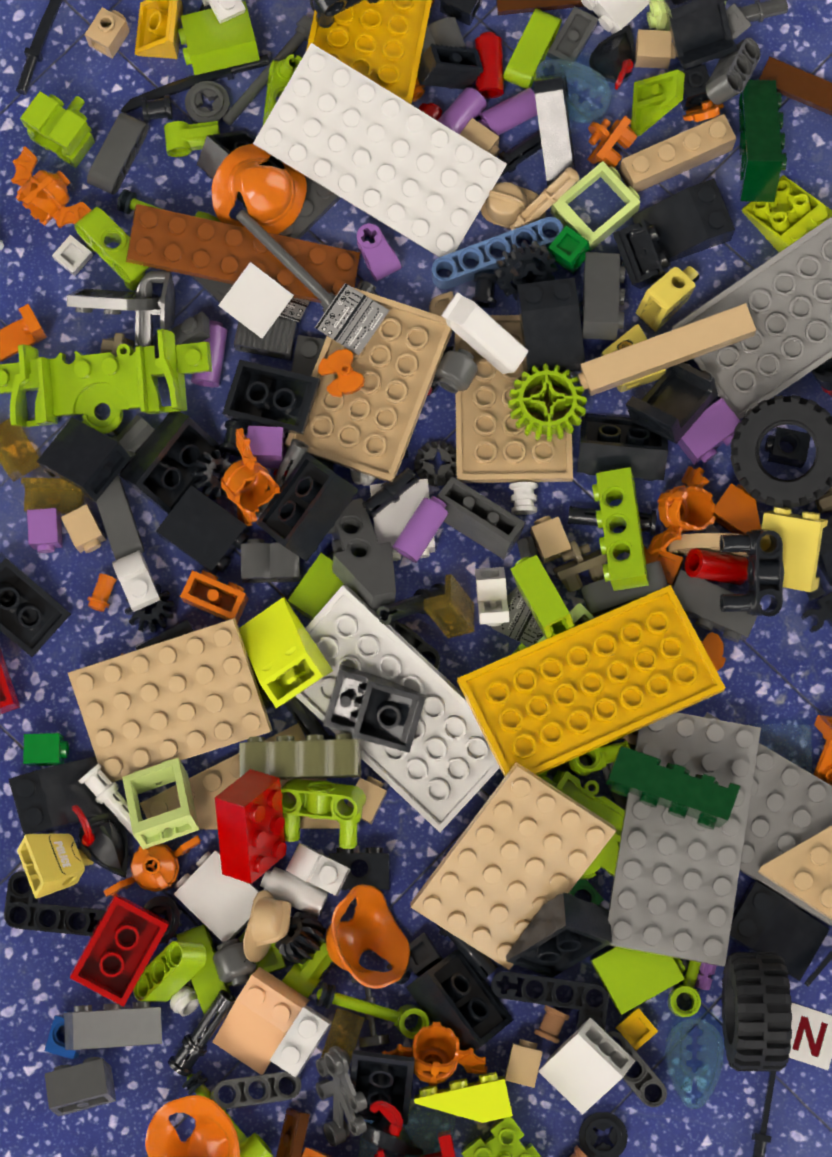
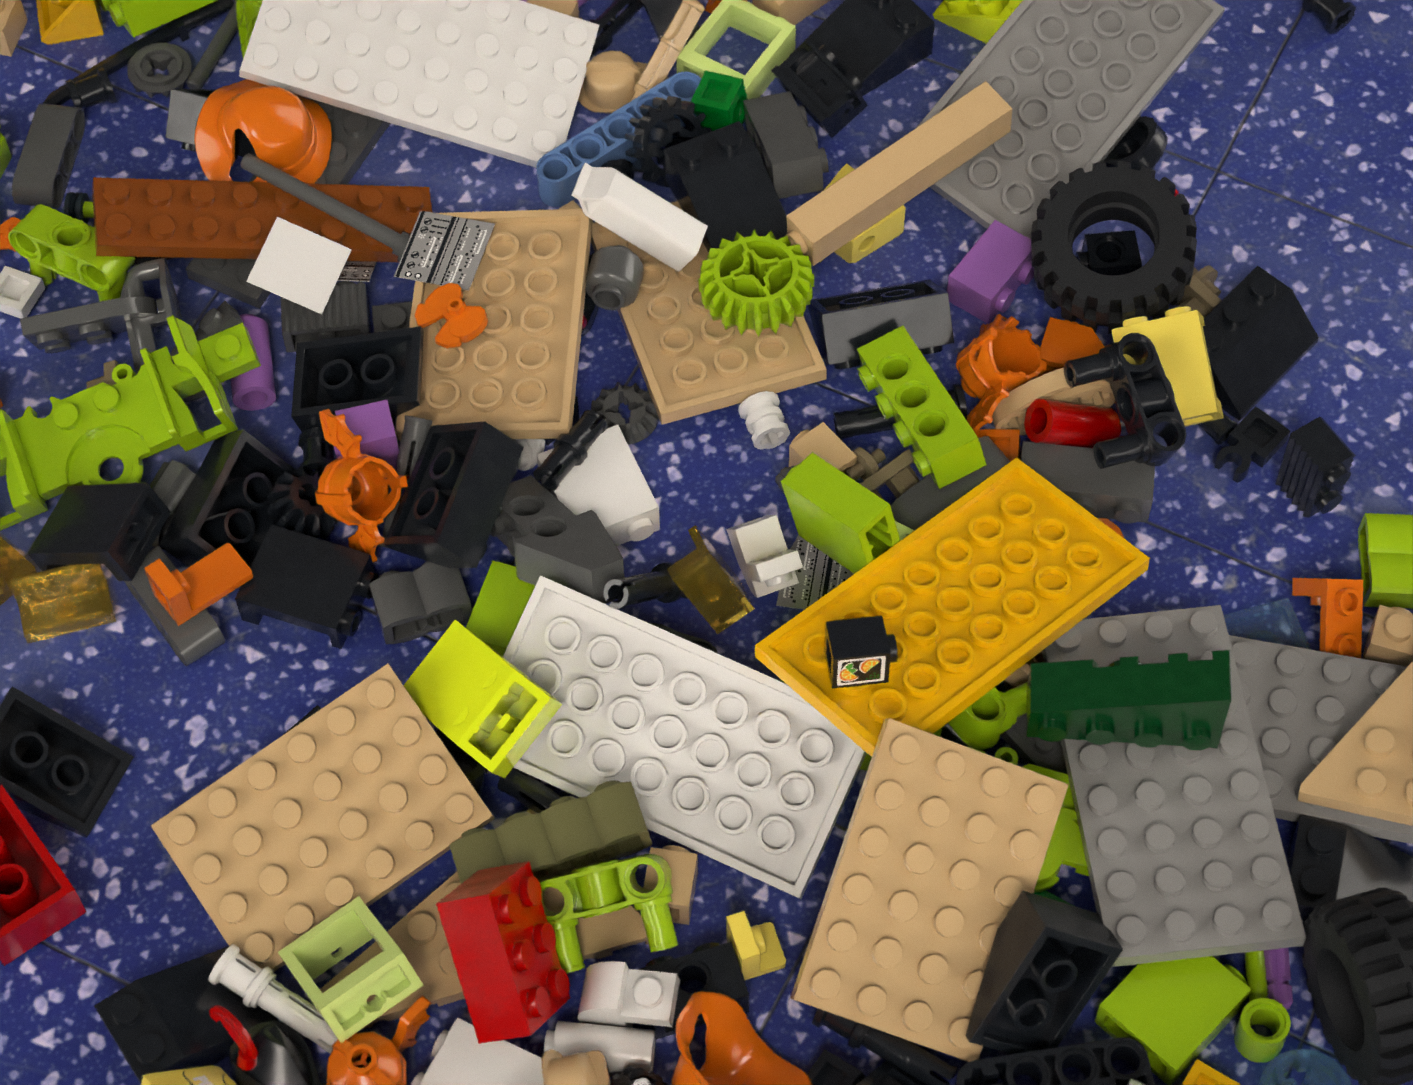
camera: 20 degrees left, 20 degrees down
(44, 529) = (62, 649): medium lavender brick -> none
(45, 749) = (140, 952): green brick -> none
(83, 529) = (123, 633): tan brick -> none
(101, 593) = (173, 724): orange pin -> none
(136, 516) = (199, 585): none -> orange bracket
(136, 580) = (222, 671): white brick -> none
(157, 615) = (238, 703): black gear -> none
(184, 137) = (138, 116): lime piece -> none
(213, 596) = (340, 660): orange brick -> none
(374, 709) = (642, 735): black slope -> none
(379, 255) = (452, 177): medium lavender piece -> none
(404, 856) = (754, 946): none -> light yellow bracket
(421, 528) = (631, 483): medium lavender brick -> none
(480, 518) = (708, 457): dark grey brick -> none
(517, 708) = (859, 651): none -> black brick
(667, 296) = (875, 111): light yellow torso -> none
(674, 401) = (932, 241): black panel -> none

